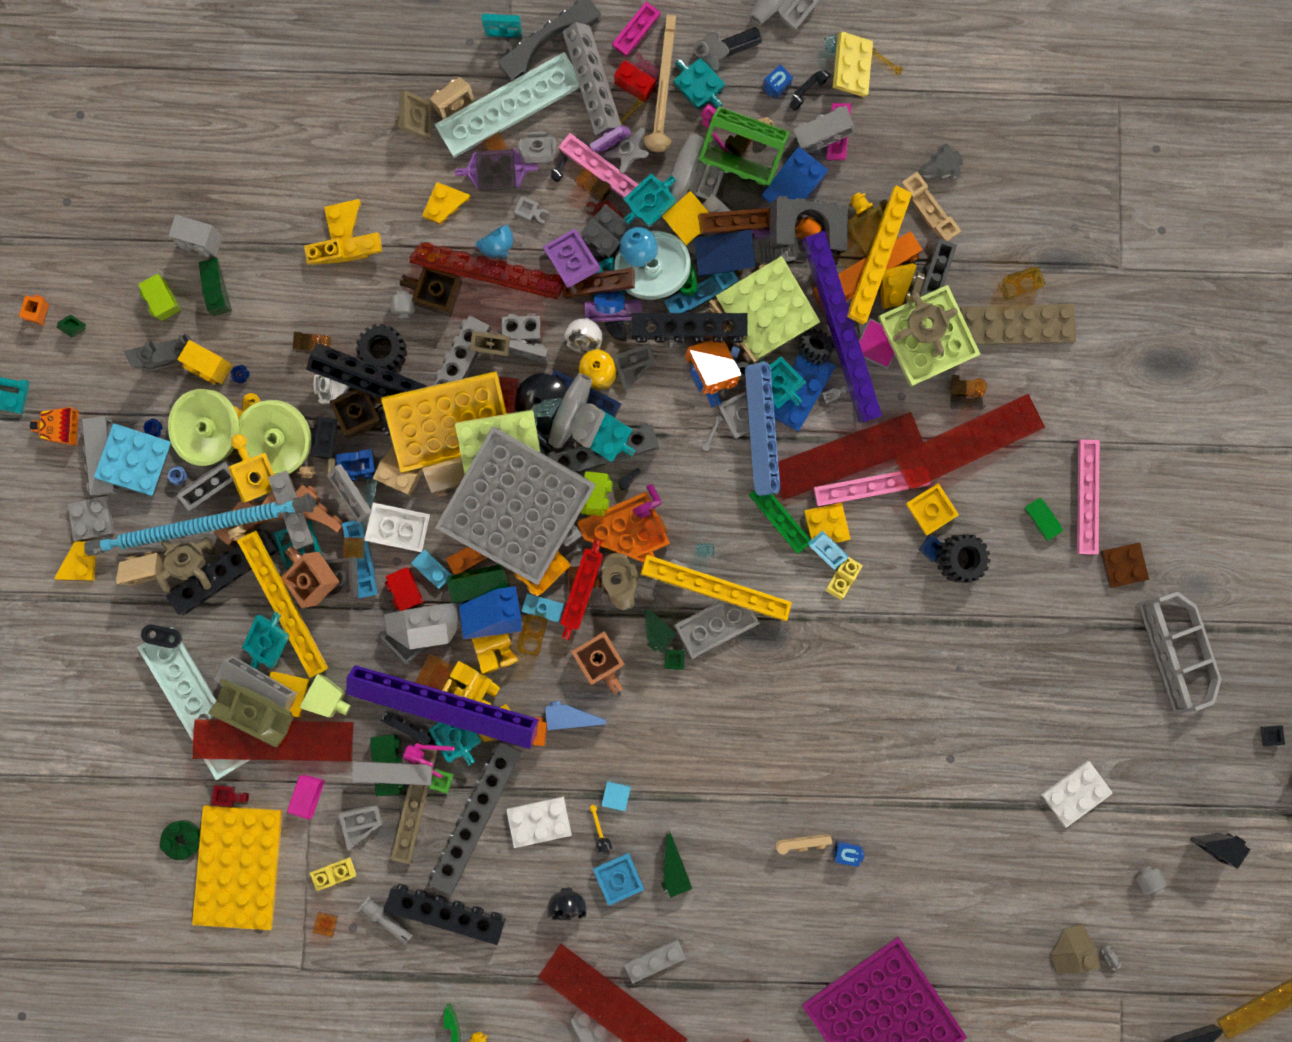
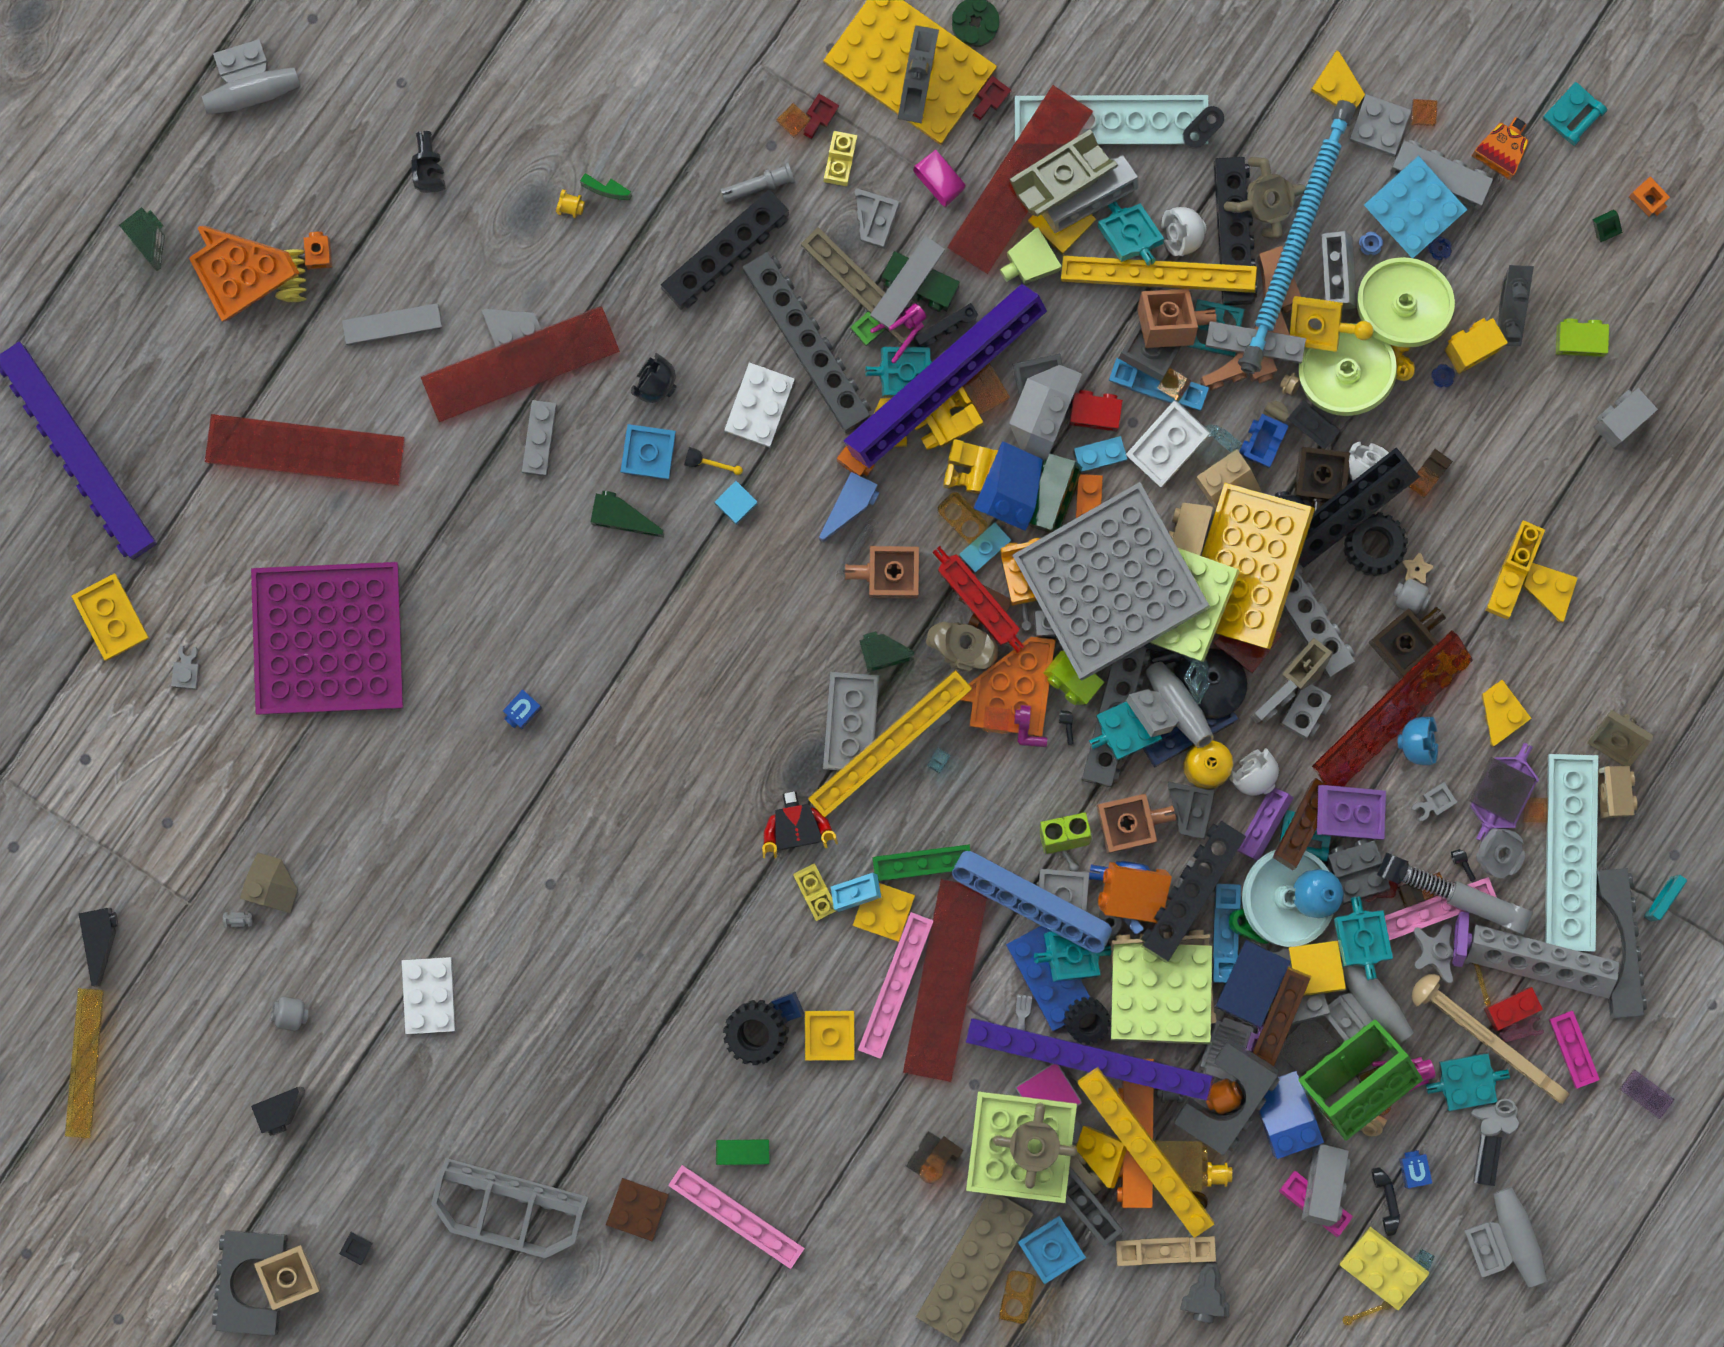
camera: 120 degrees right, 0 degrees up
(64, 494) = (1424, 112): none -> clear orange tile
(140, 569) = (1290, 147): tan slope -> none
(213, 287) = (1559, 404): dark green slope -> none
(237, 533) = (1265, 270): tan plate -> none
(239, 858) = (918, 74): none -> dark grey connector
(243, 606) = (1184, 230): none -> white cylinder
(308, 908) = (821, 113): none -> dark red plate
(349, 493) = (1234, 414): light grey plate -> none
(379, 309) = (1423, 568): none -> tan plate
(583, 158) = (1457, 894): none -> piece
(609, 302) = (1274, 822): blue piece -> none
(617, 330) = (1241, 815): black tile -> none
(669, 387) = (1135, 810): none -> nougat brick
(674, 659) = (841, 653): dark green plate -> none
(696, 439) = (1061, 843): none -> lime piece
(802, 843) = (562, 667): tan plate -> none
(810, 617) = (795, 827): none -> torso
(969, 442) = (877, 1123): clear red plate -> none
(976, 280) = (1051, 1249): none -> dark azure plate

